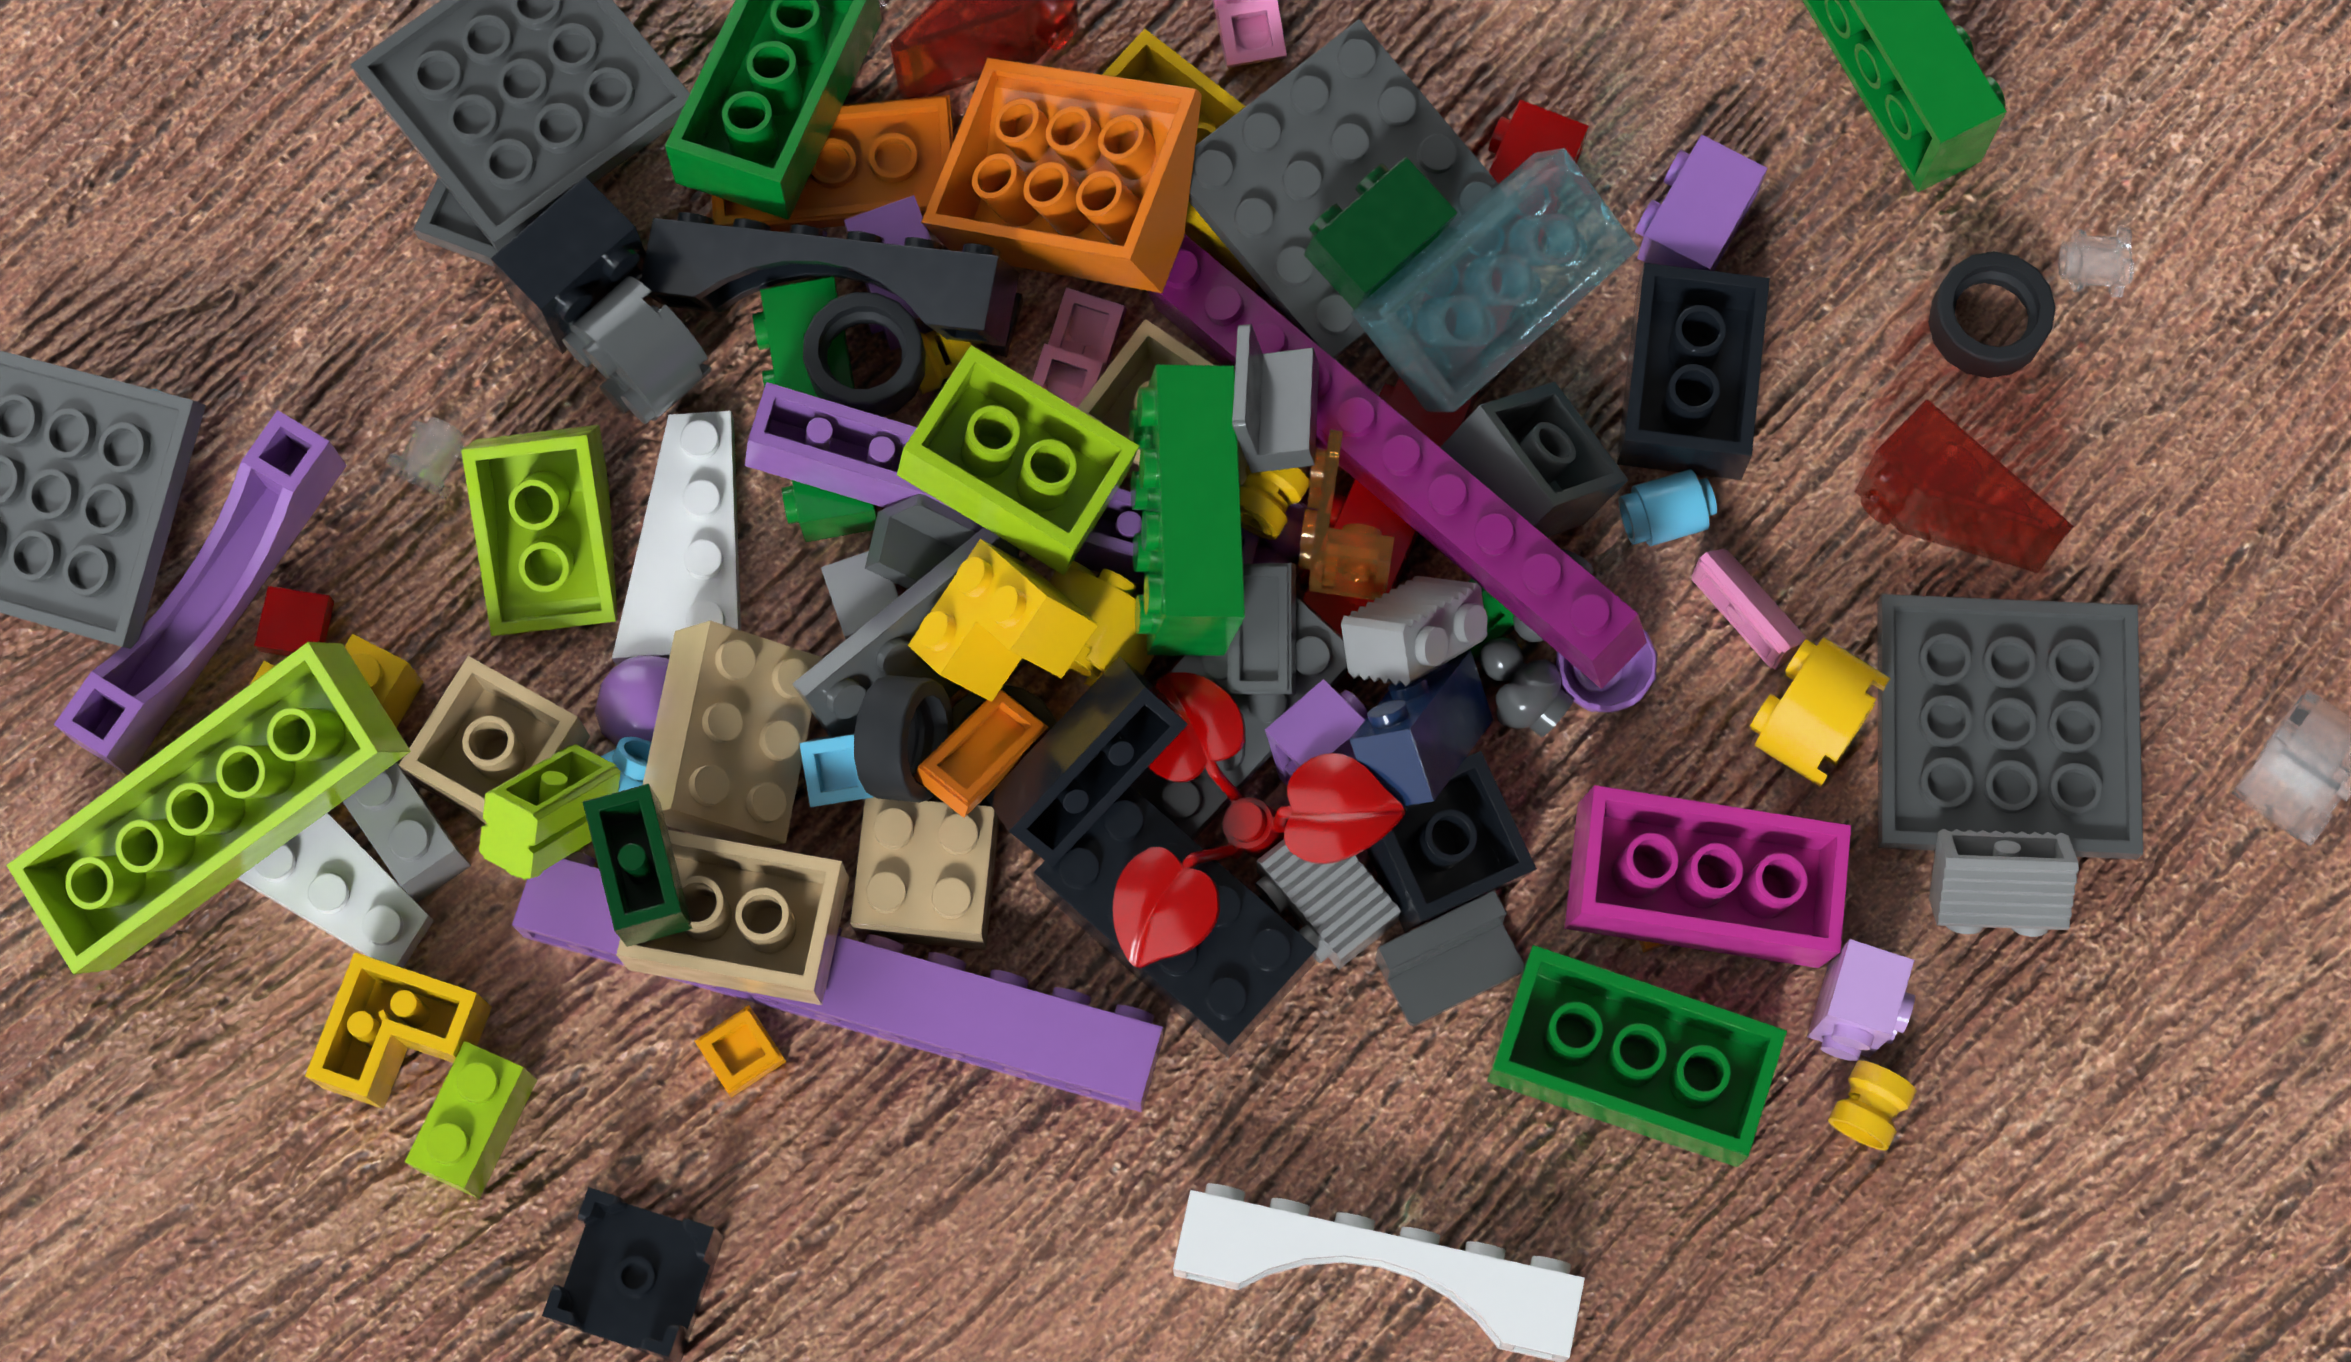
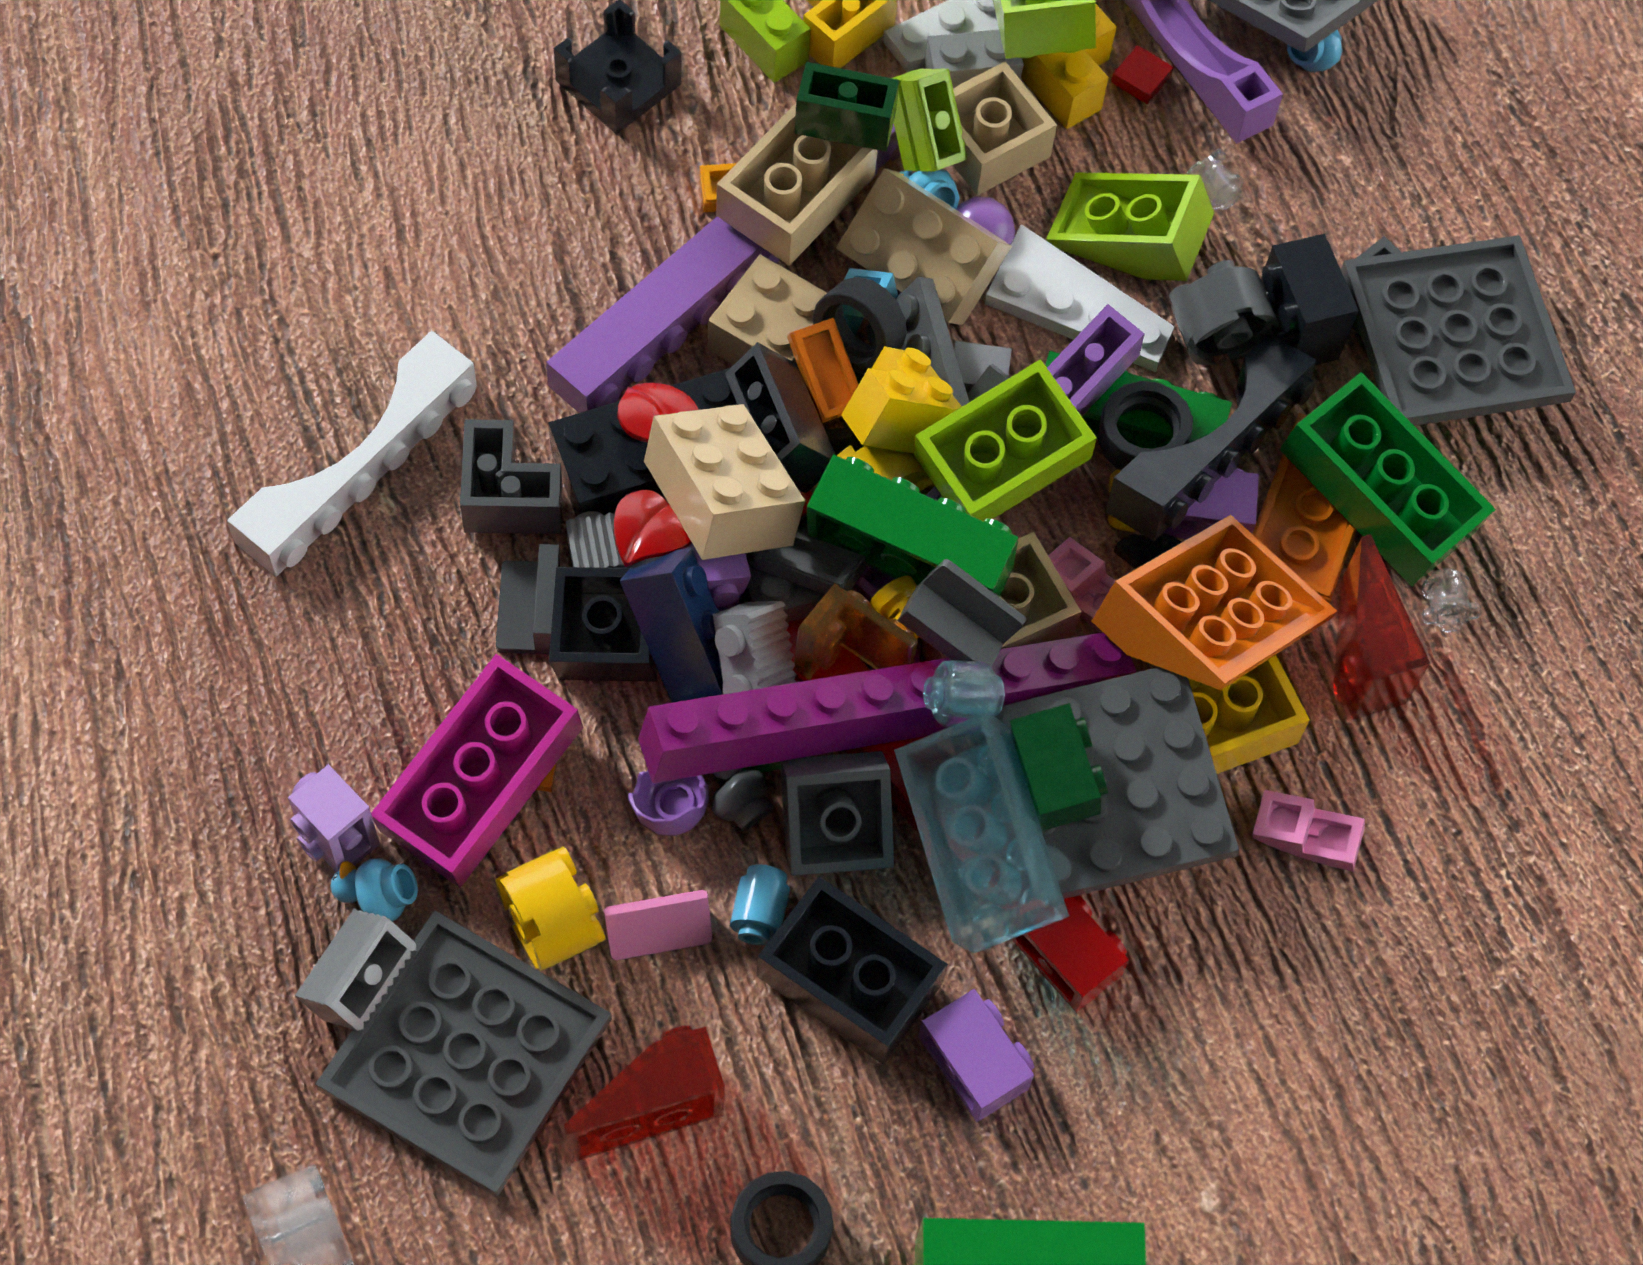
camera: 110 degrees right, 10 degrees down
(1236, 755) = (723, 481): none -> tan brick
(1343, 1067) = (503, 493): none -> dark grey brick
(1359, 356) = (963, 691): none -> clear light blue head
(1637, 1056) = (389, 666): green brick -> none
(1872, 1104) = (263, 802): yellow wheel -> none
(1894, 913) = (376, 886): none -> medium azure animal

